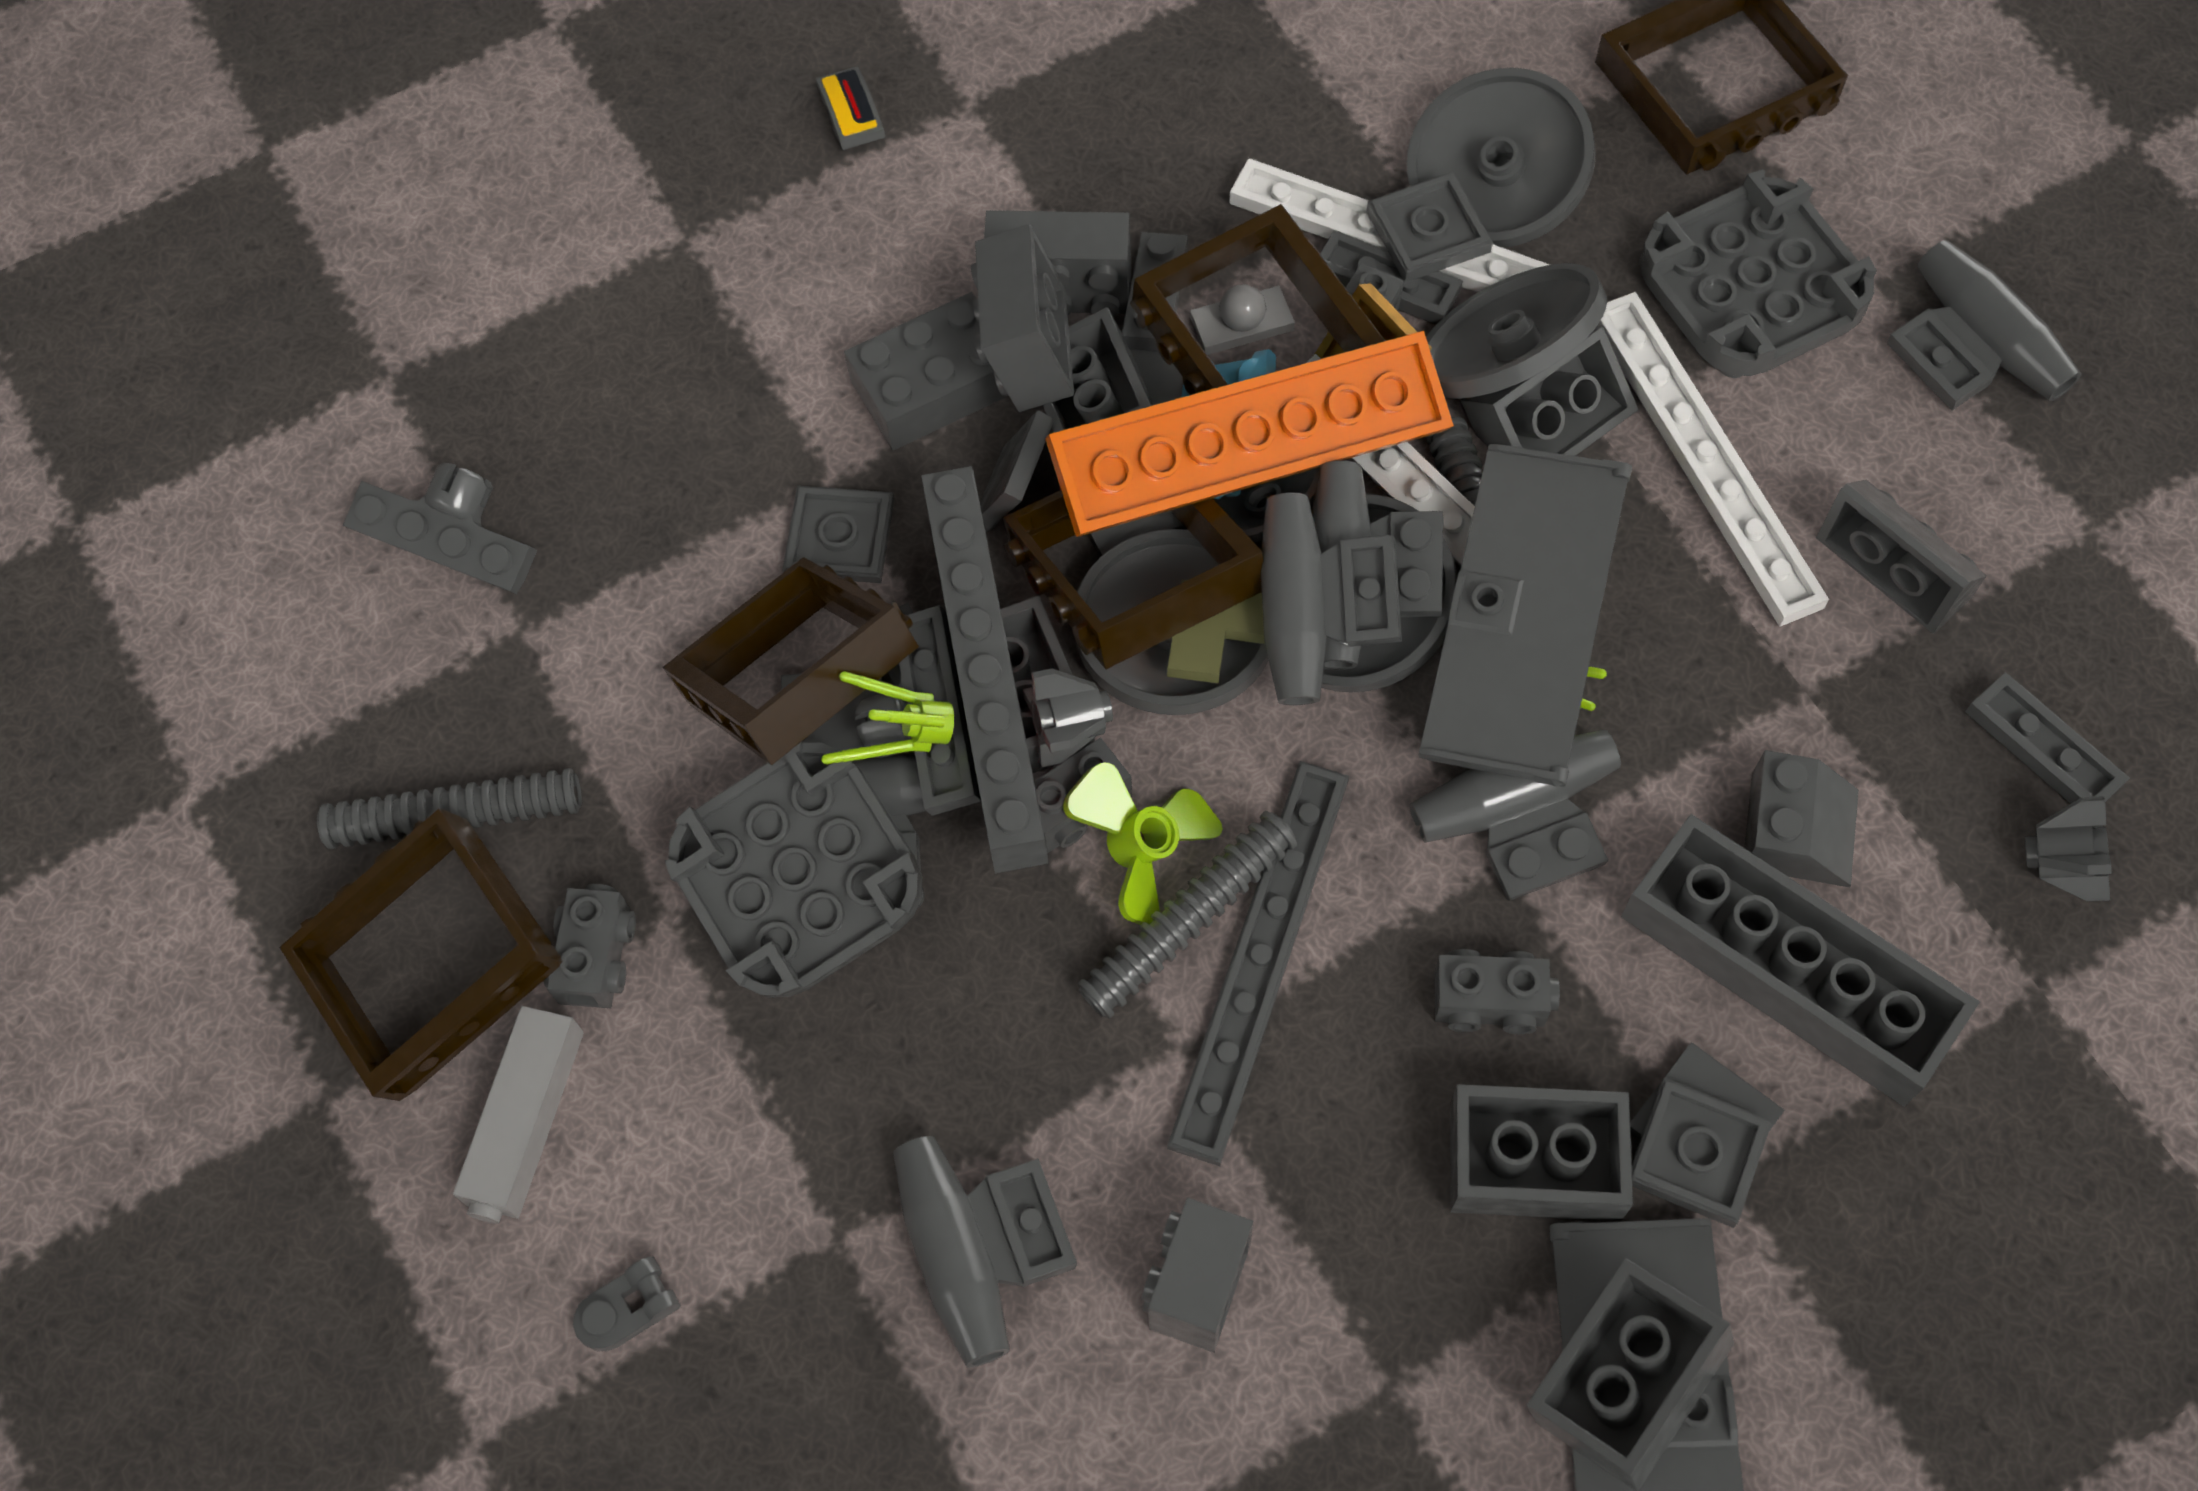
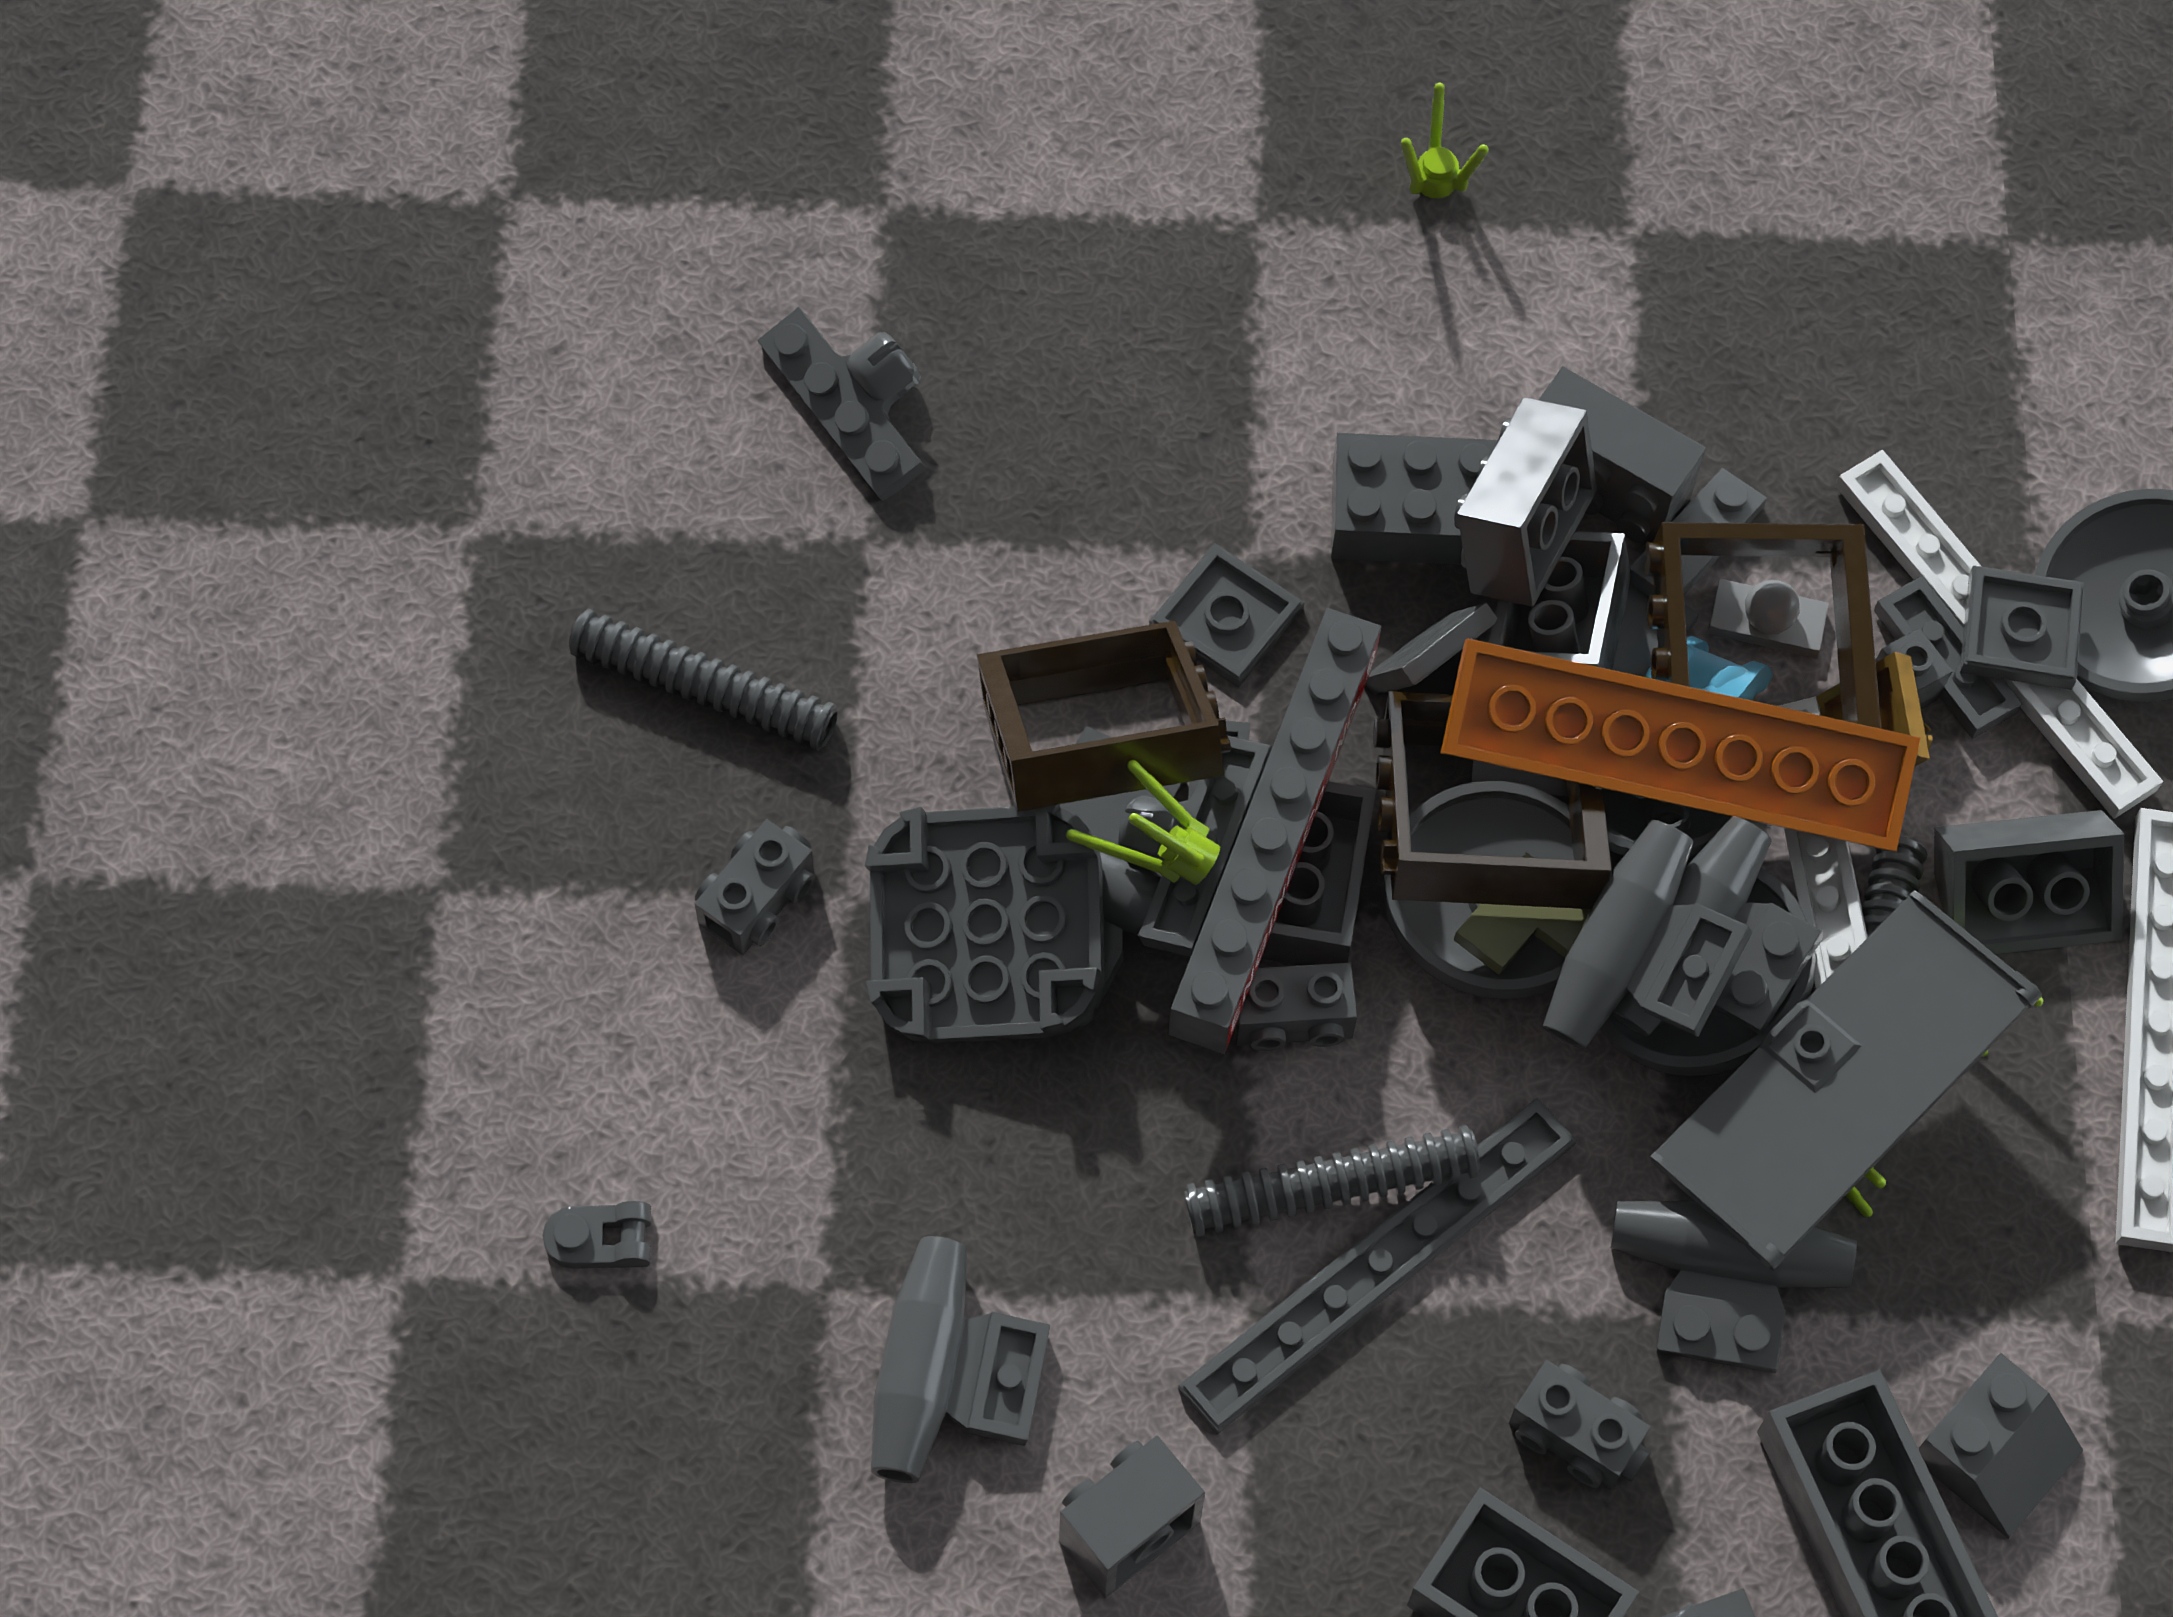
camera: 25 degrees right, 0 degrees up
(466, 1017) = (612, 885): dark brown window -> none
(518, 1115) = (604, 1004): light grey brick -> none
(799, 131) = (1438, 169): none -> lime plant
(850, 108) = (1505, 171): slope -> none
(1065, 713) = (1326, 921): dark grey brick -> none
(1105, 803) = (1315, 1028): lime piece -> none
(1516, 329) = (2025, 786): dark grey dish -> none

